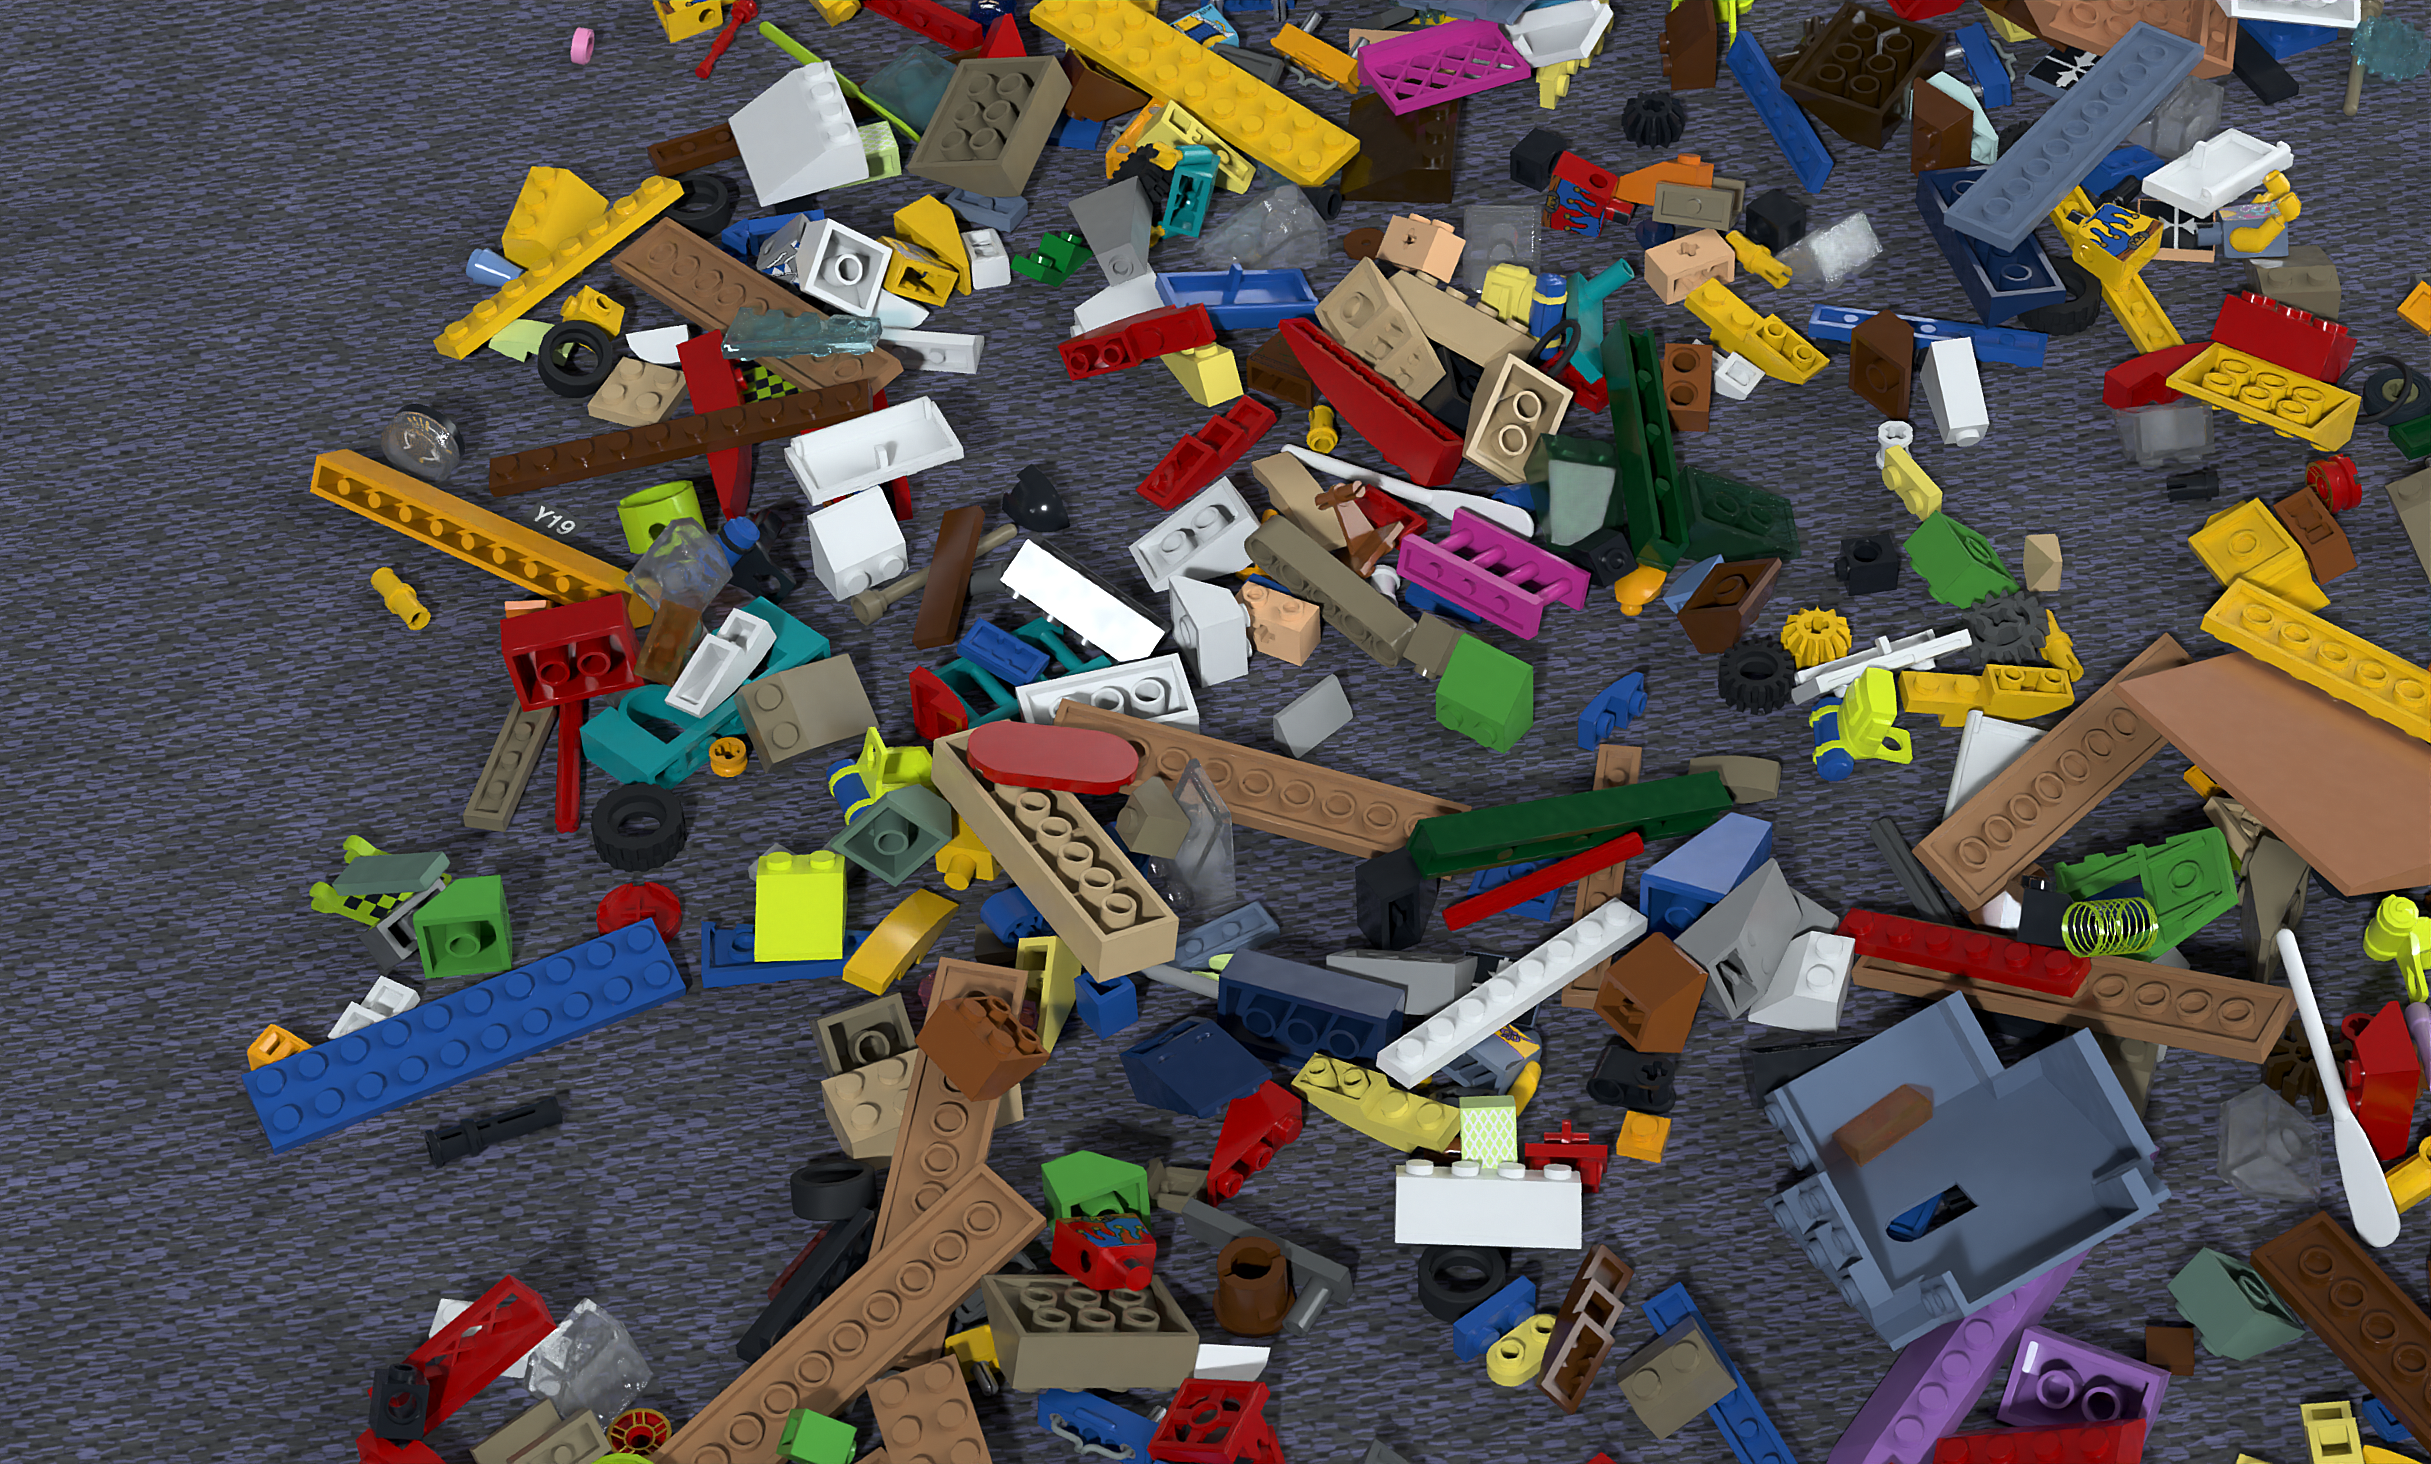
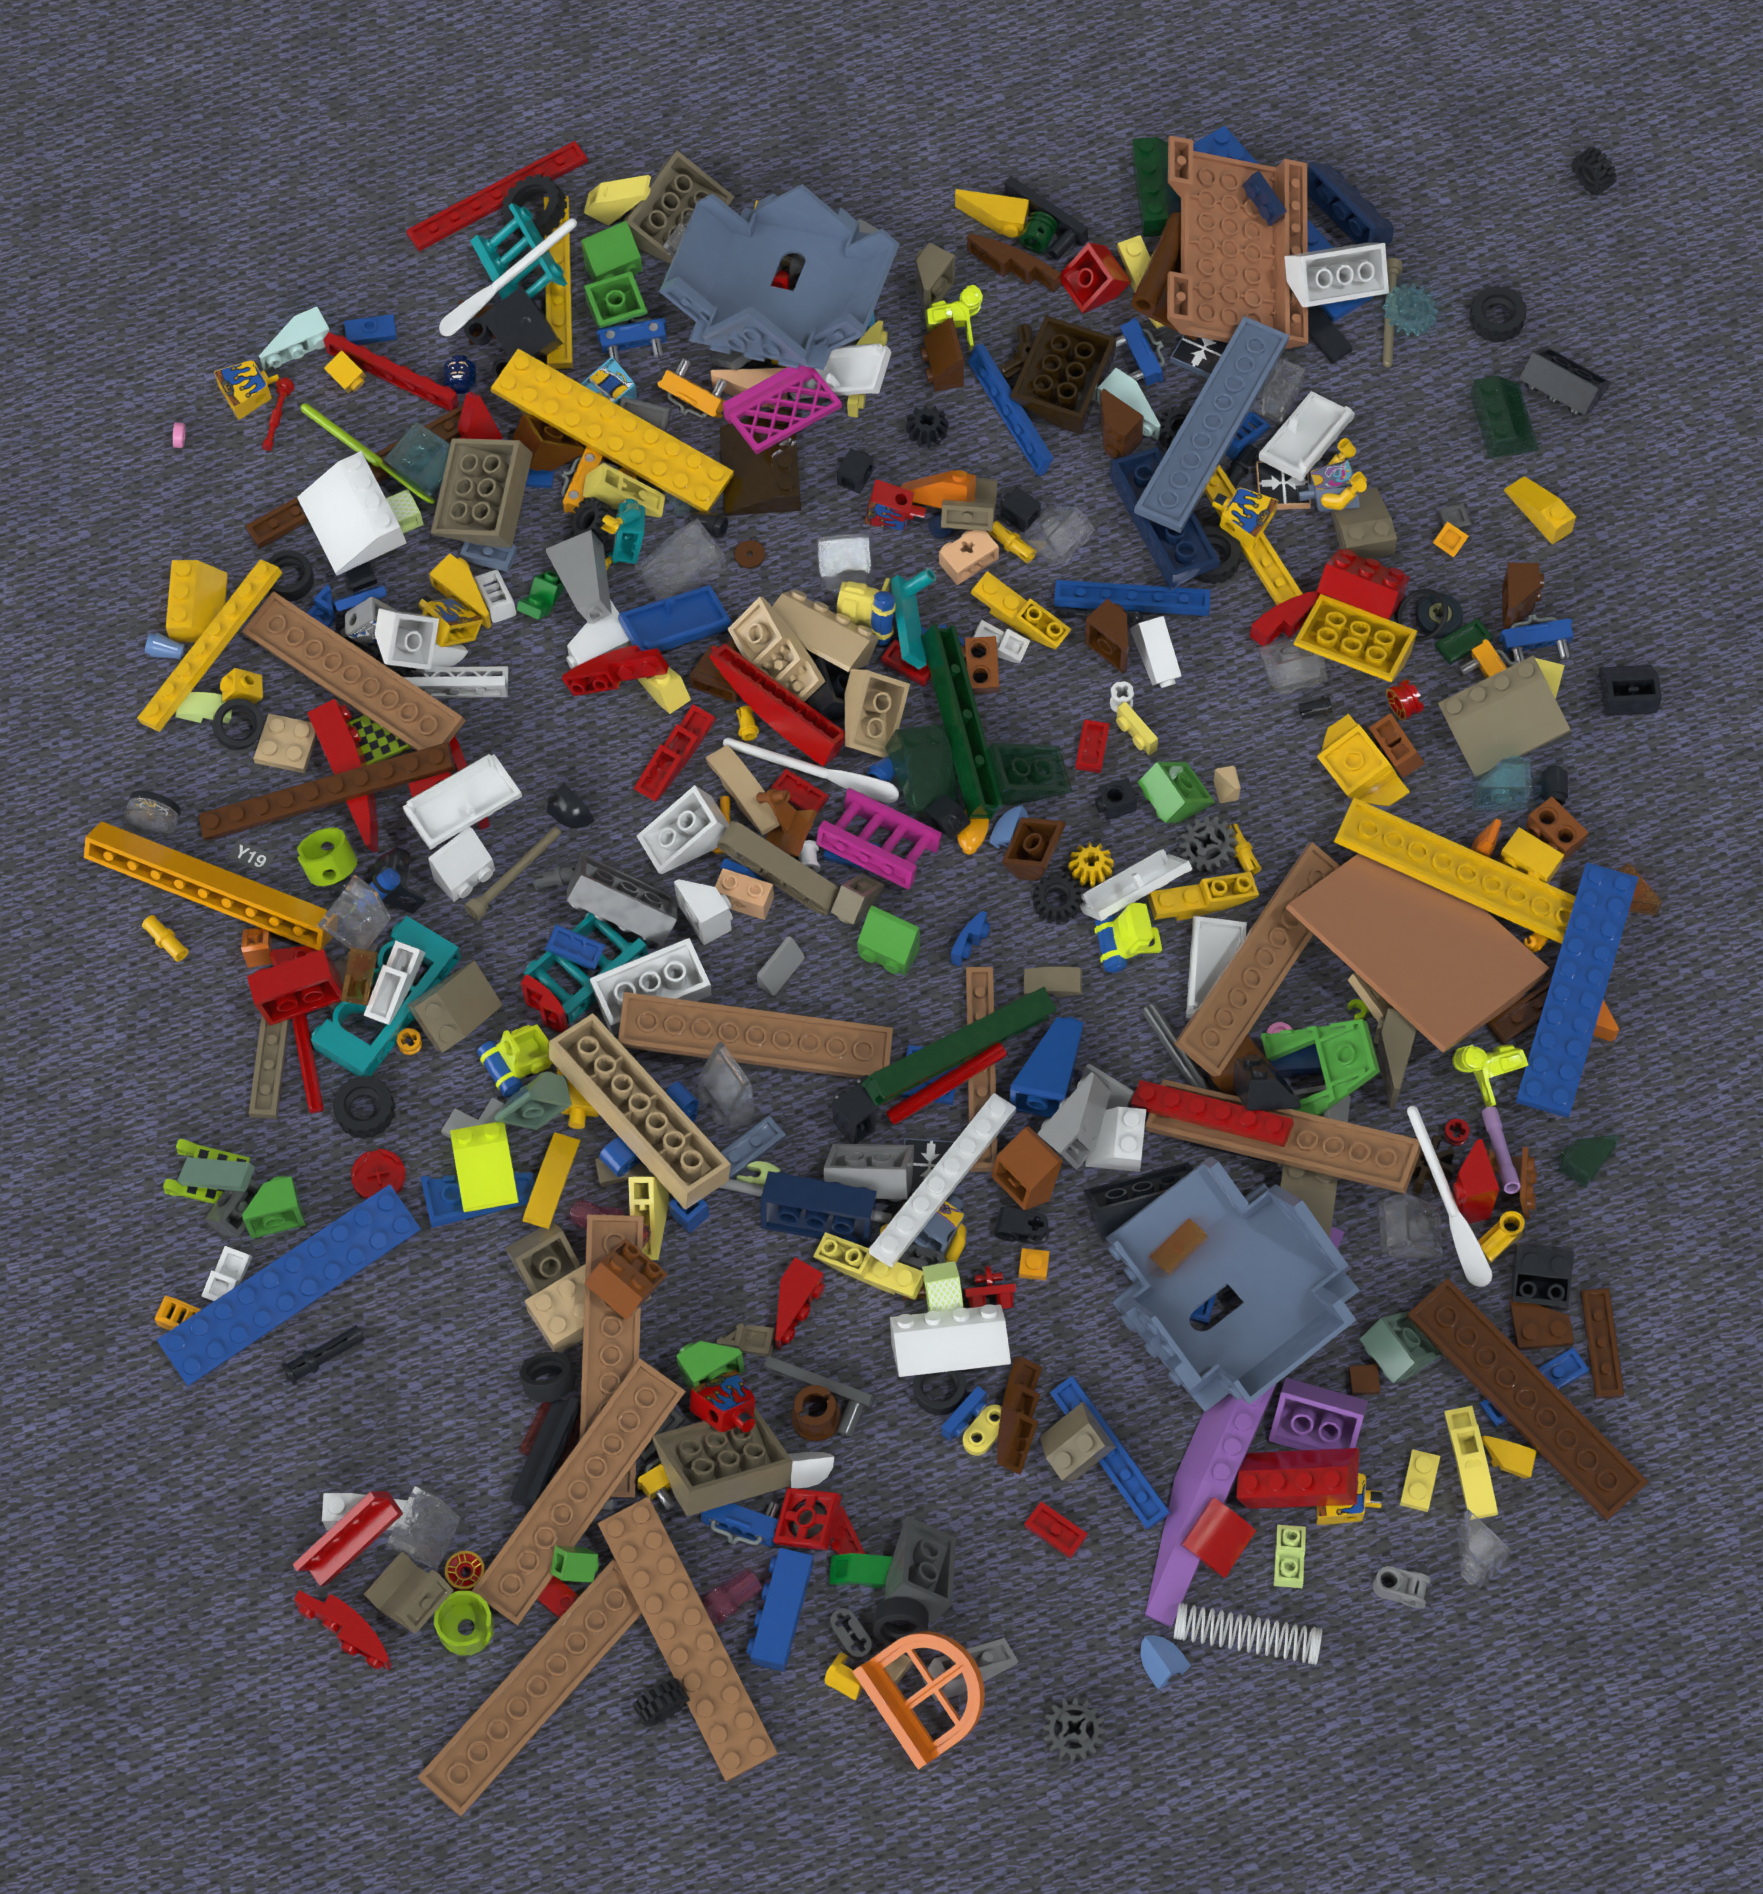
camera: 10 degrees left, 20 degrees up
(401, 1421) = (316, 1575): black brick -> none
(659, 345) = (293, 704): white brick -> none
(784, 337) = (378, 702): clear light blue wing -> none
(948, 577) = (525, 882): reddish brown tile -> none
(1052, 757) = (627, 1045): red tile -> none
(1153, 821) = (698, 1081): dark tan slope -> none
(1192, 1069) = (754, 1261): dark blue slope -> none
(1421, 246) = (790, 566): light nougat brick -> none
(1568, 353) = (904, 655): black tyre -> none
(1840, 501) = (1092, 746): none -> red plate
(2117, 927) = (1309, 1096): lime piece -> none

